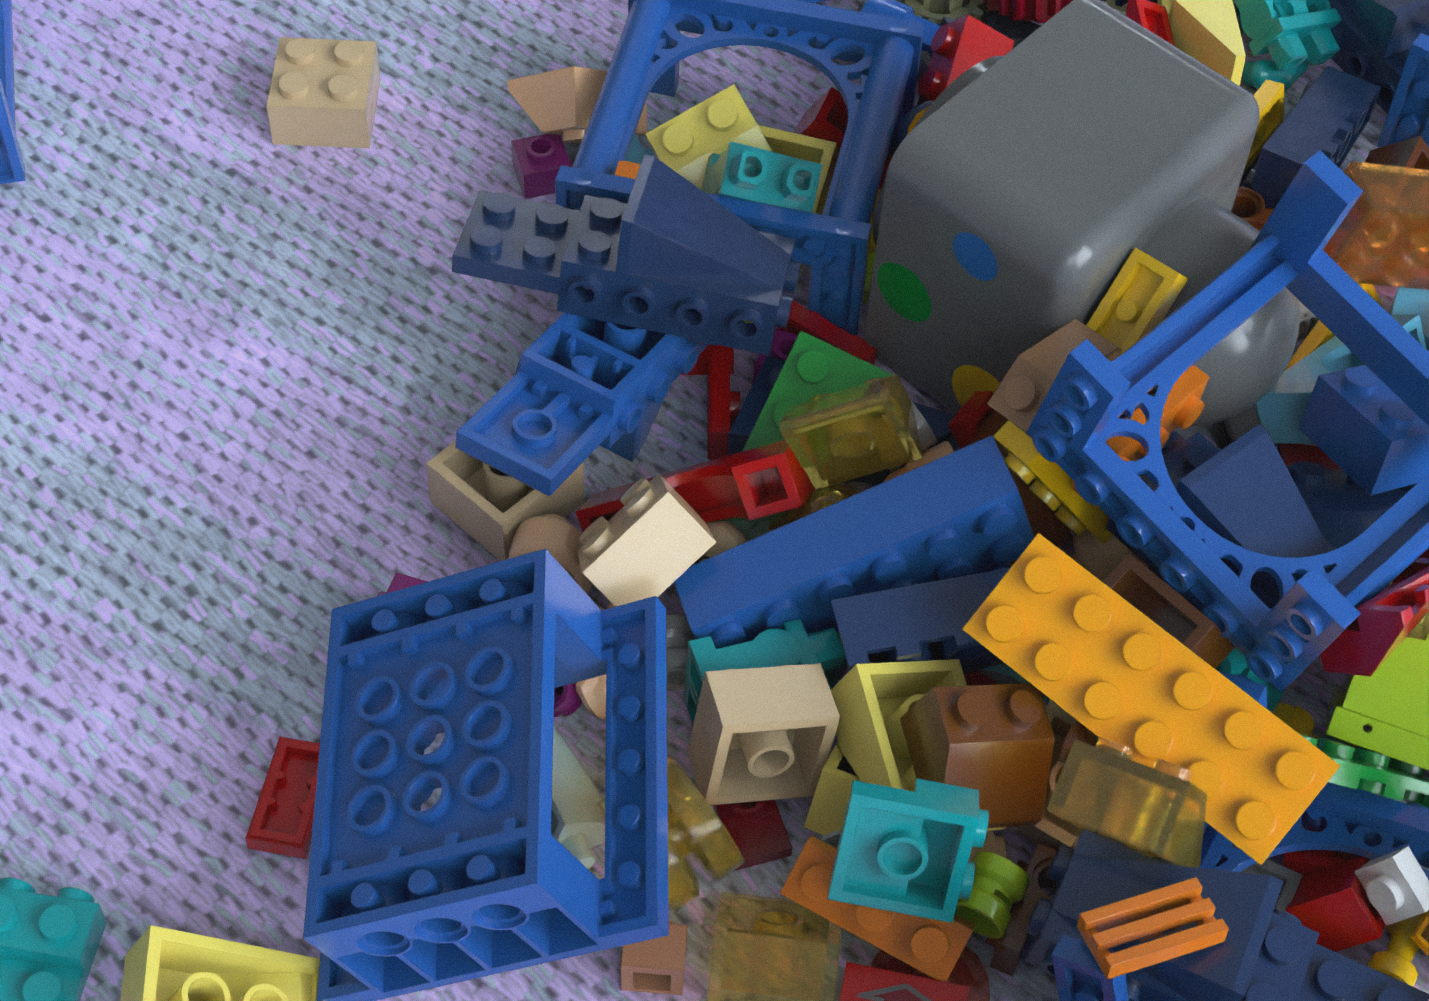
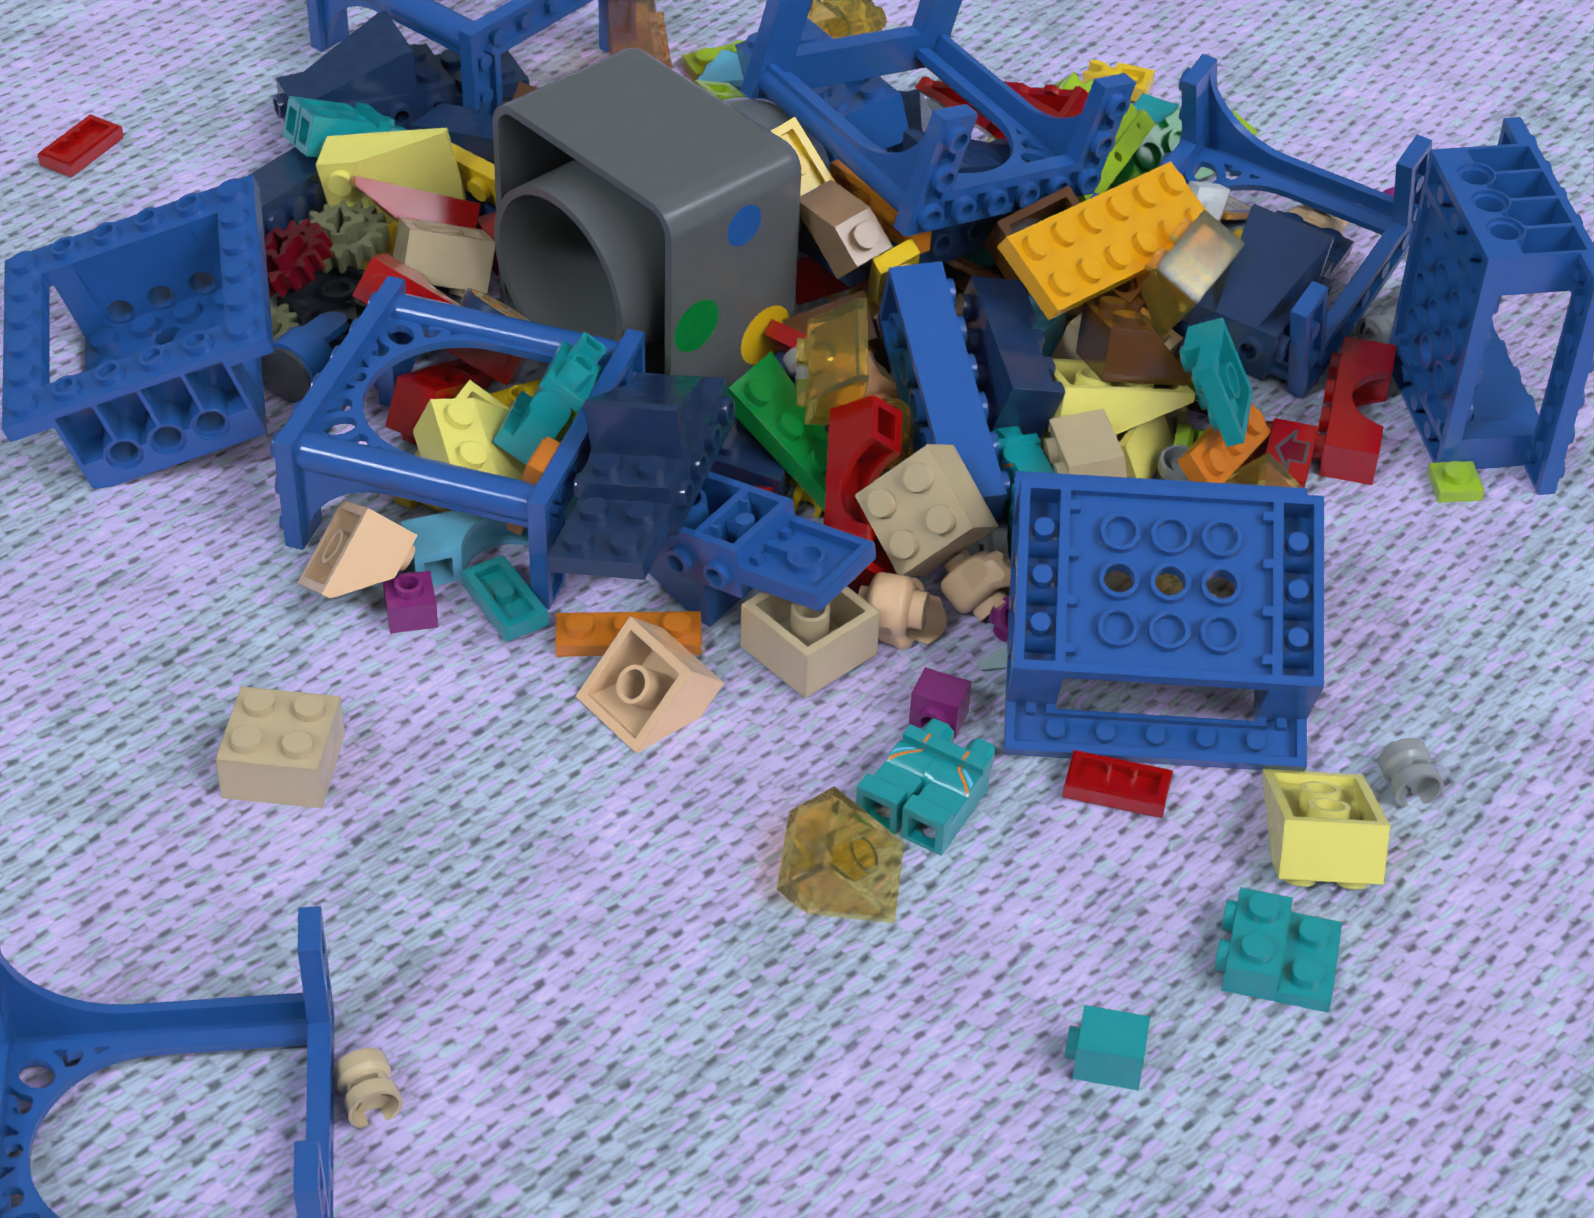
camera: 85 degrees left, 10 degrees down
(166, 535) = (840, 860): none -> clear yellow slope
(273, 605) = (928, 783): none -> teal hips
(430, 361) = (648, 685): none -> light nougat slope
(514, 326) = (594, 631): none -> orange plate
(1146, 918) = (1303, 260): orange tile -> none

